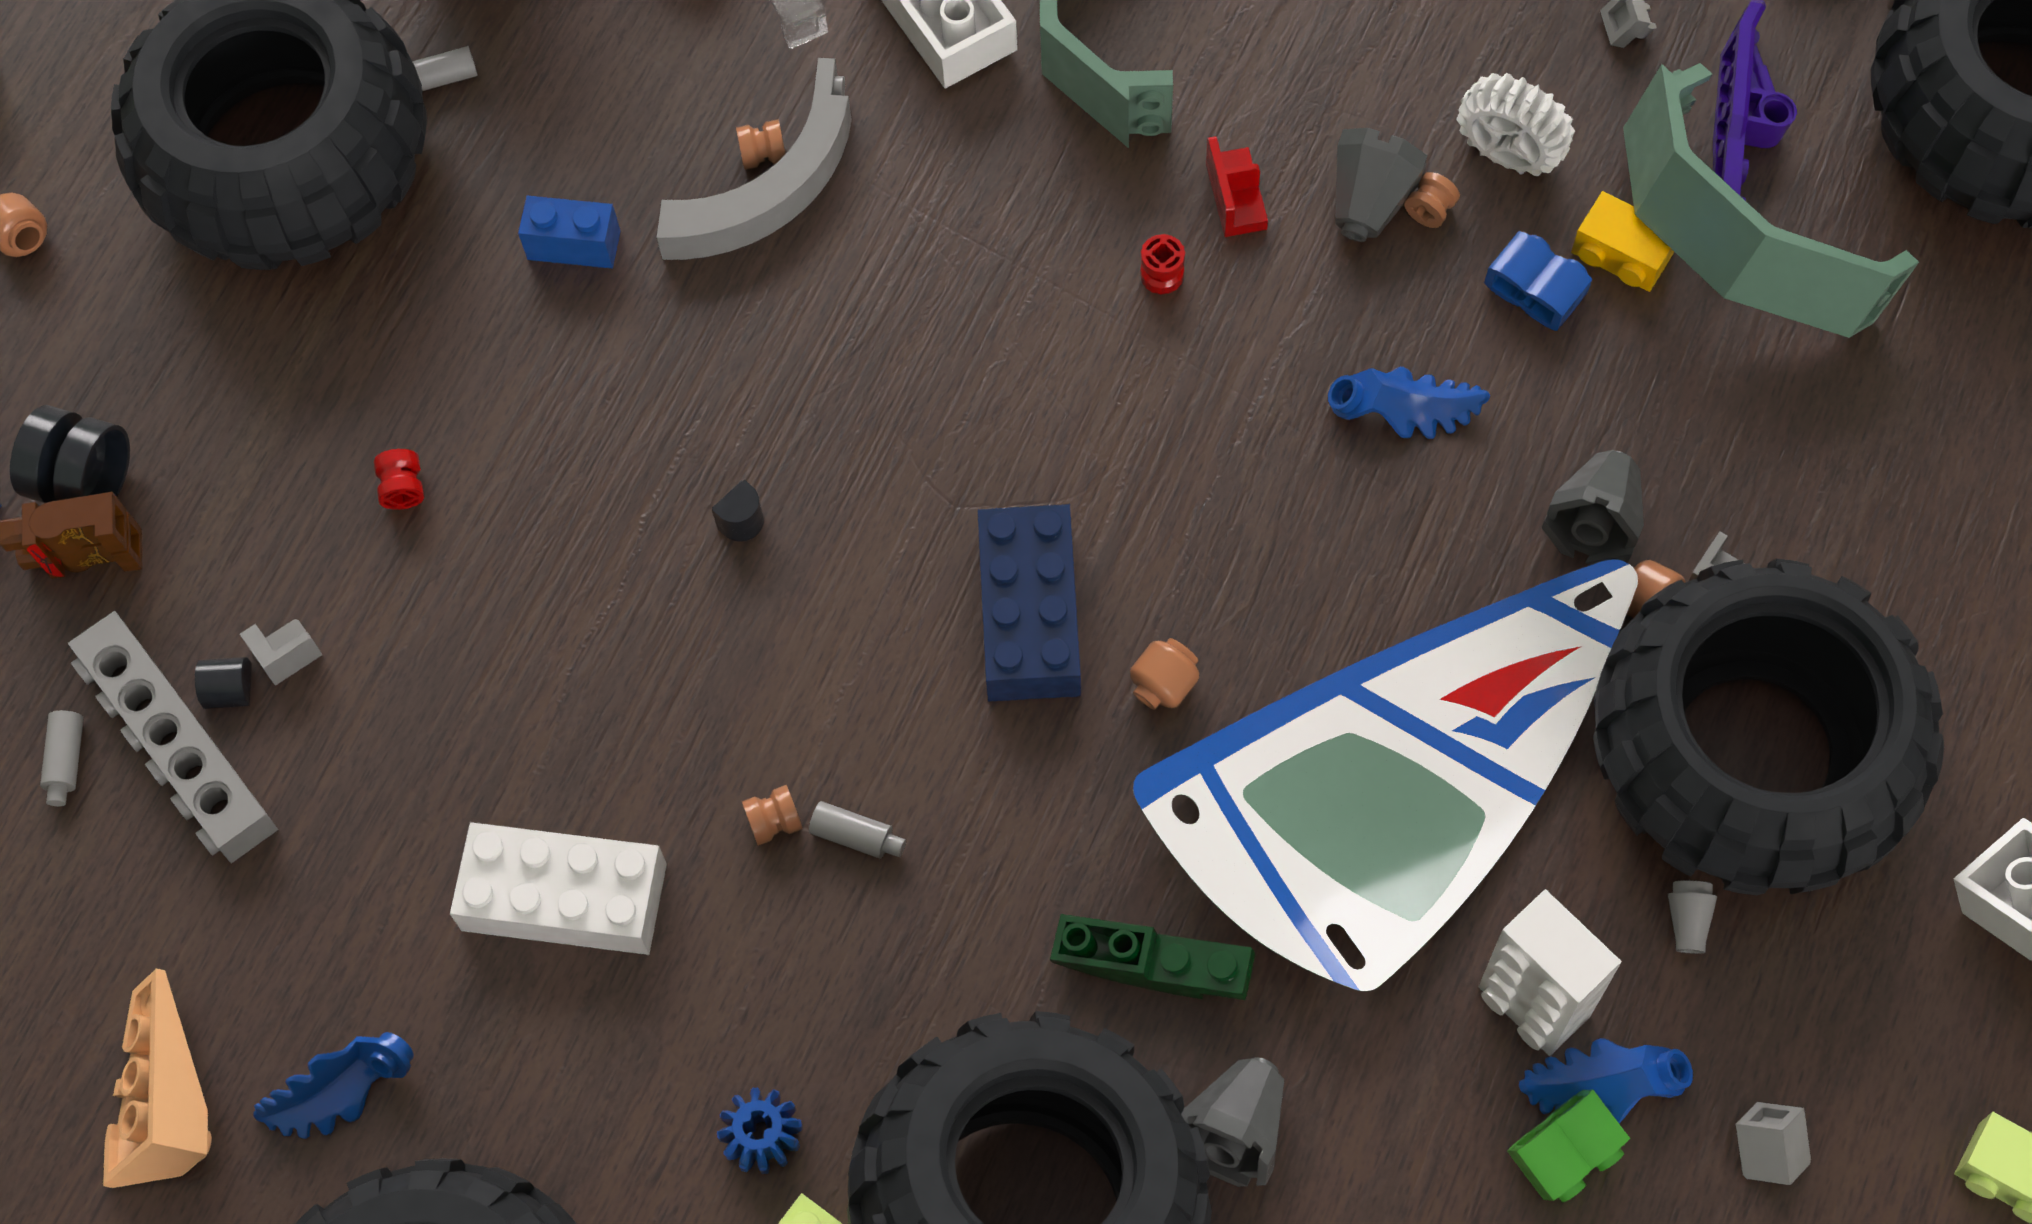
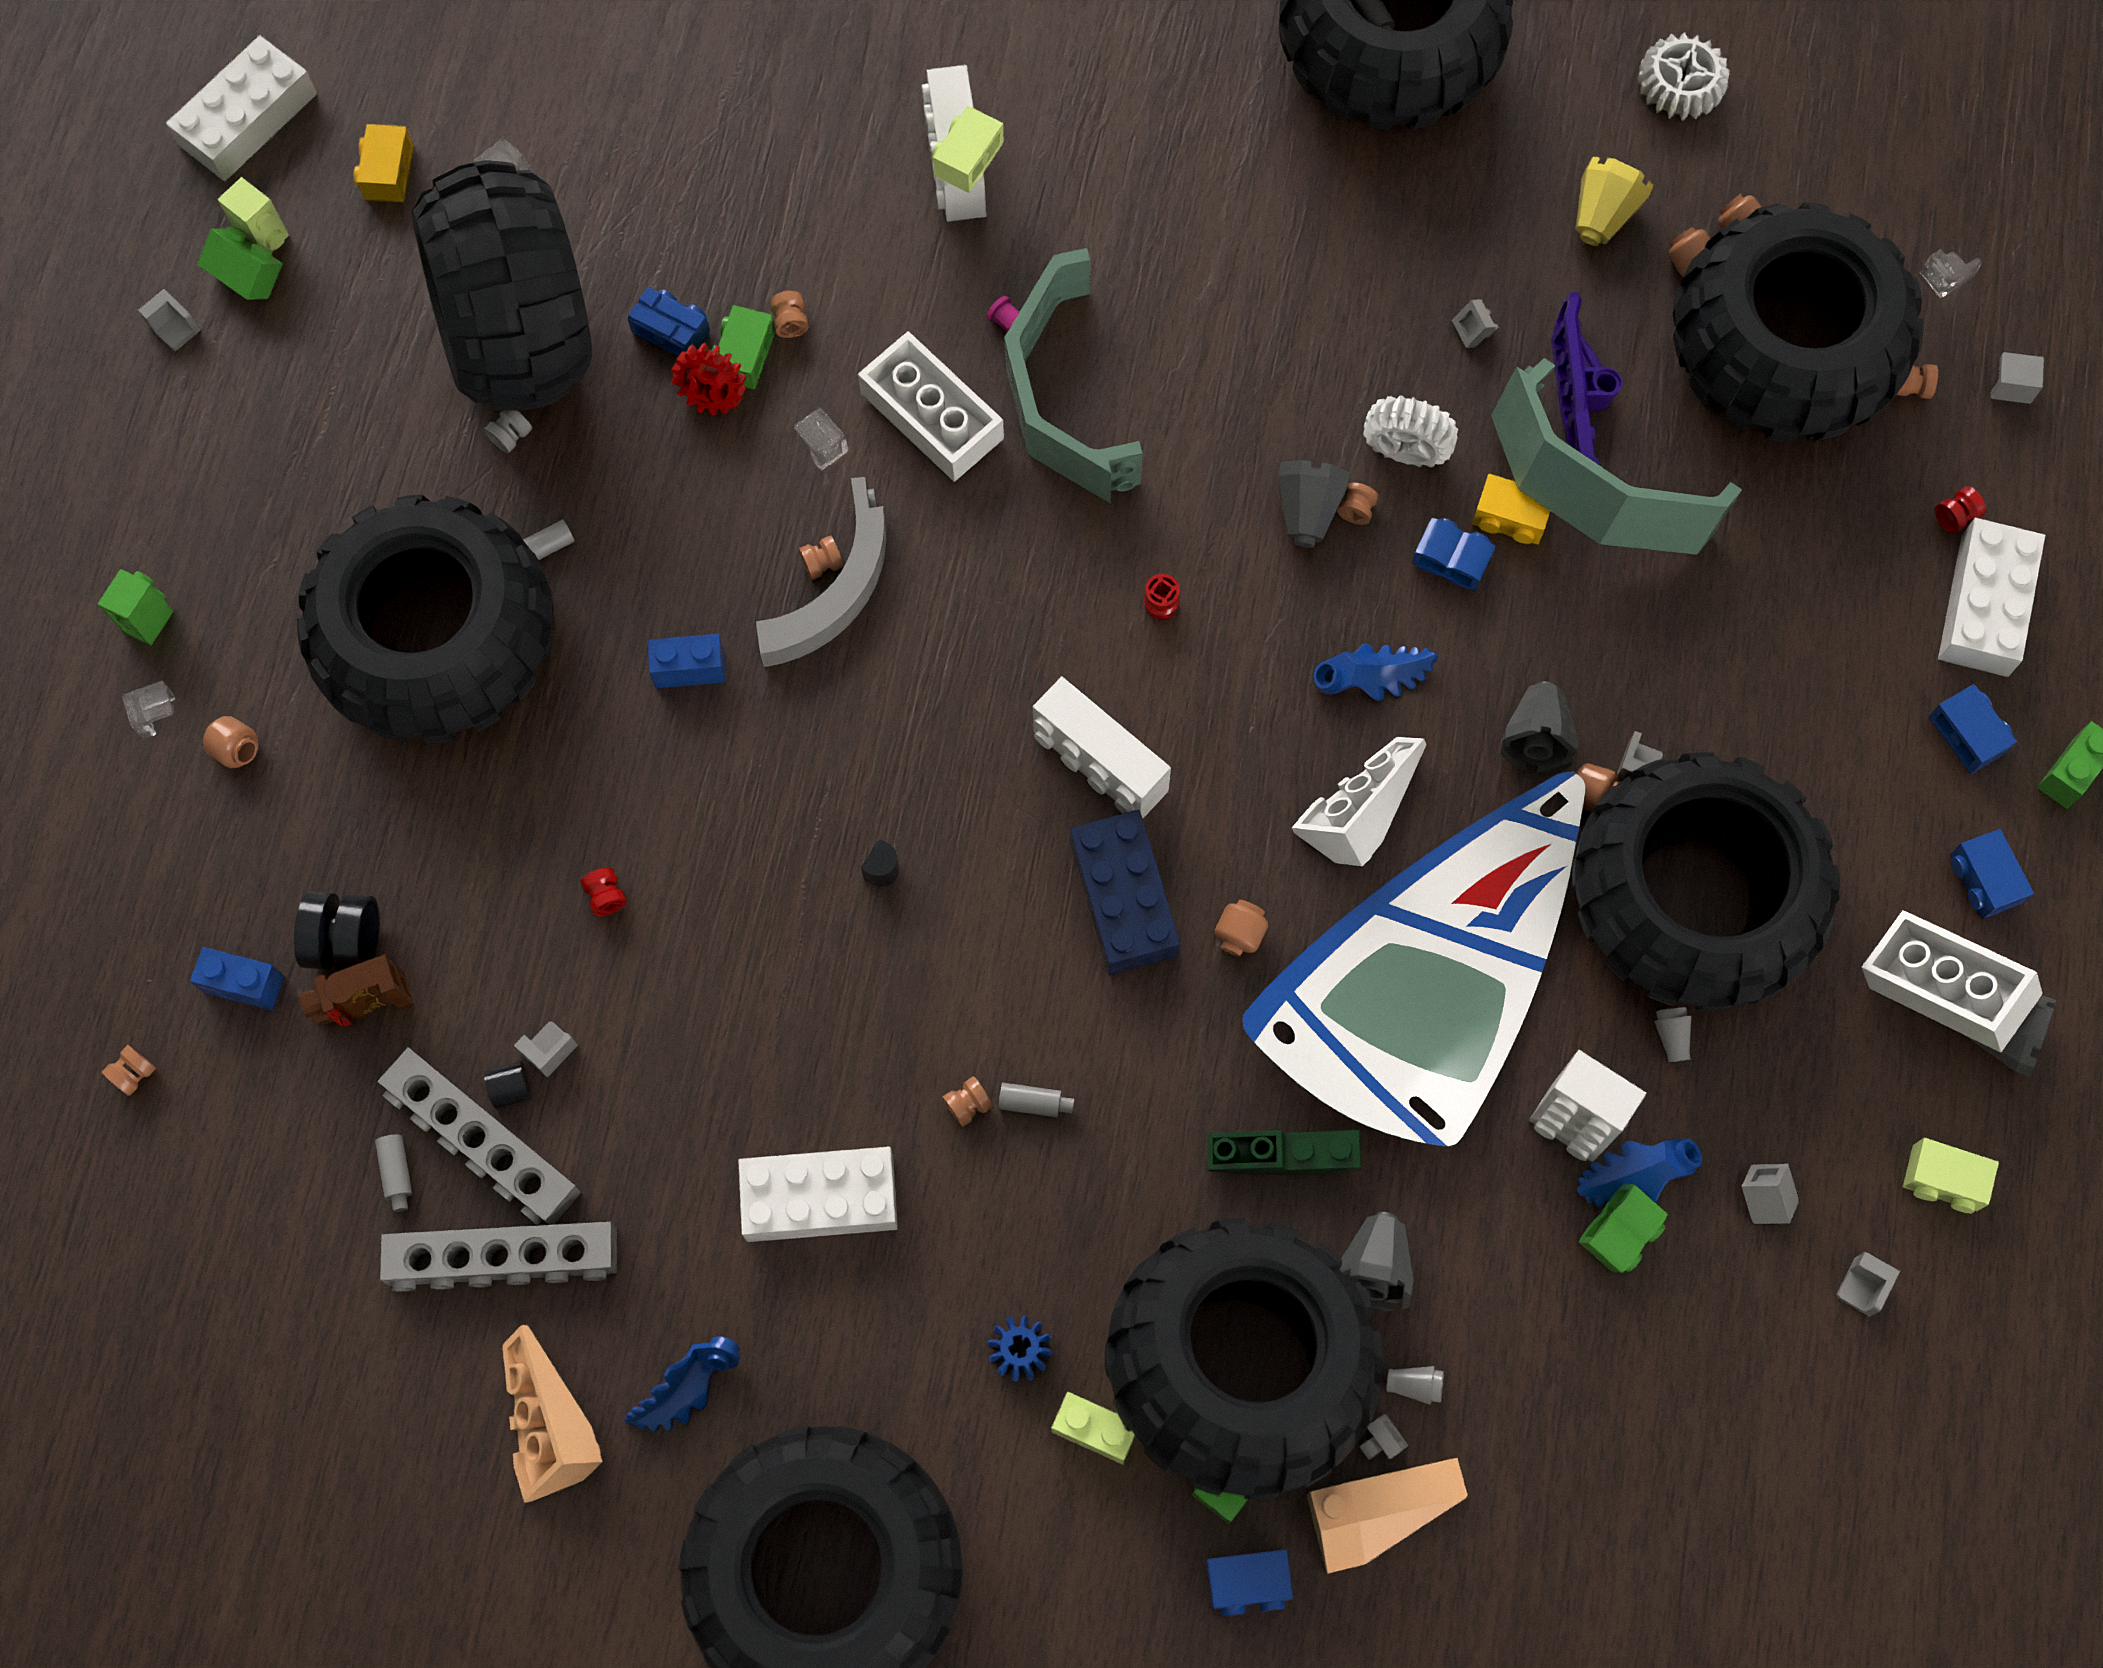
camera: 15 degrees left, 5 degrees up
(43, 850) = (402, 1250): none -> light grey brick
(1039, 425) = (1100, 749): none -> white brick
(1236, 189) = (1203, 523): red panel -> none
(1347, 569) = (1360, 813): none -> white wedge

